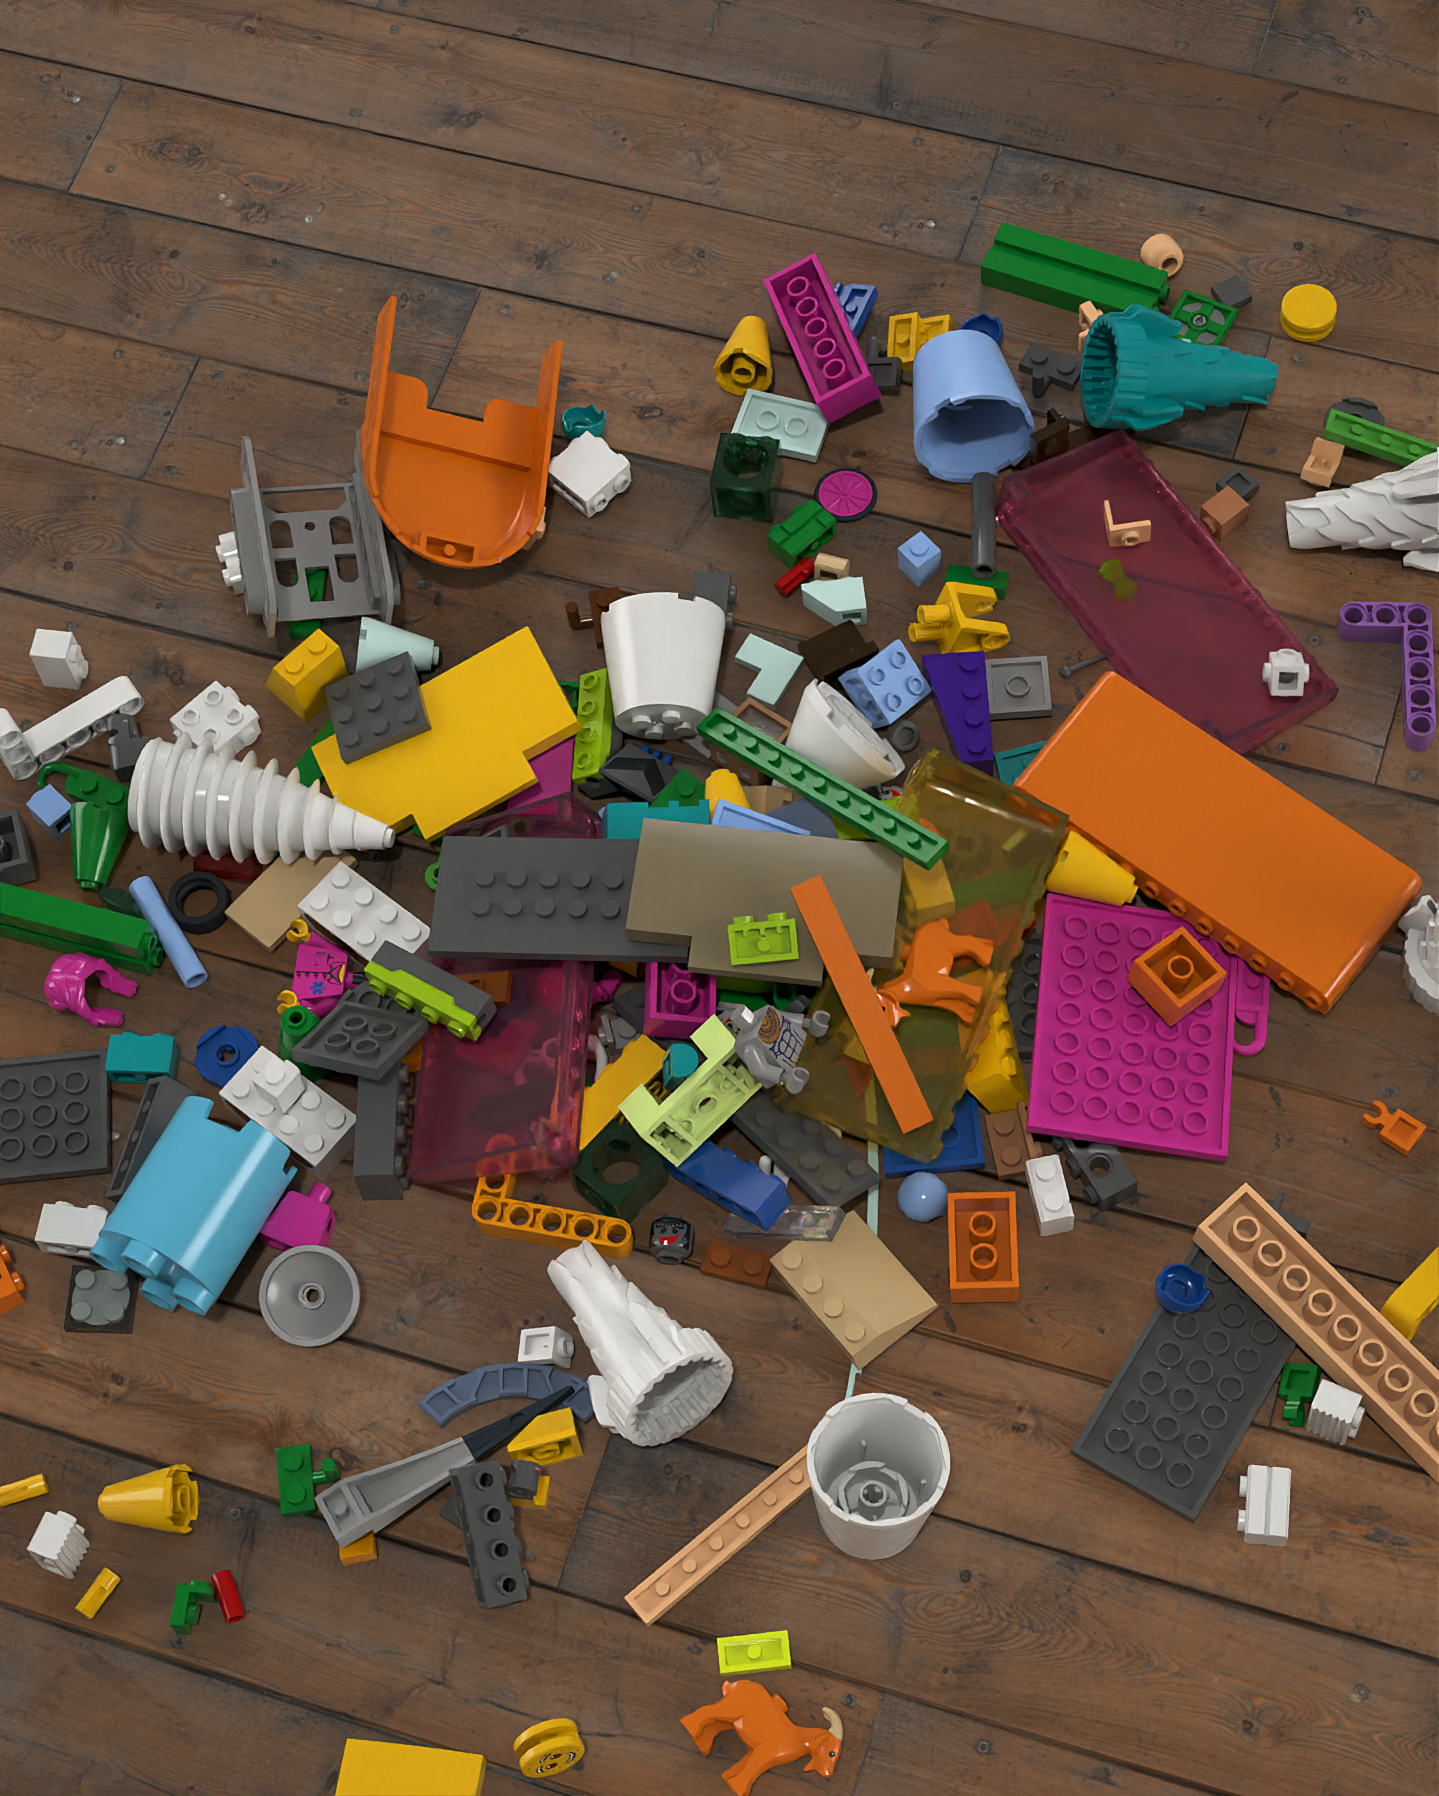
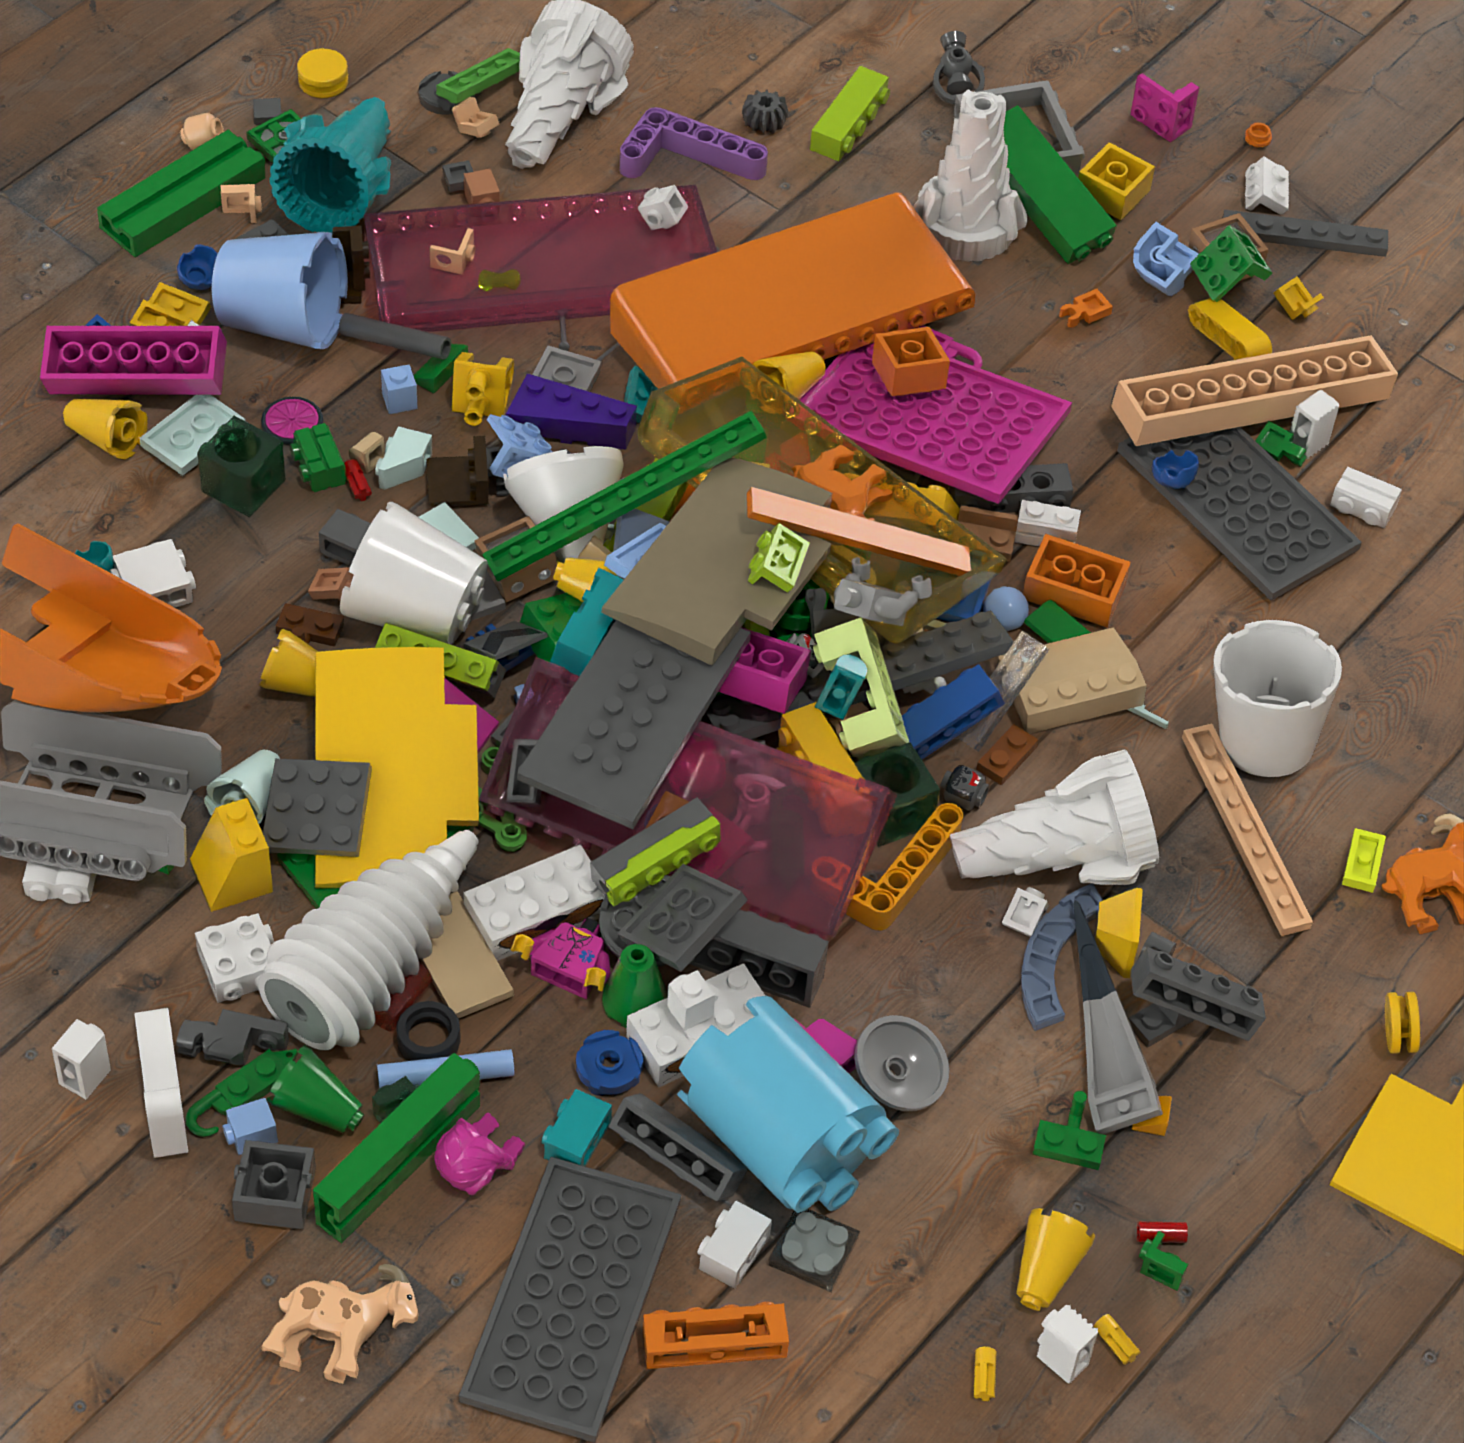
camera: 80 degrees left, 10 degrees down
(544, 617) = (290, 666): none -> yellow cone
(920, 1248) = (1054, 623): none -> green slope

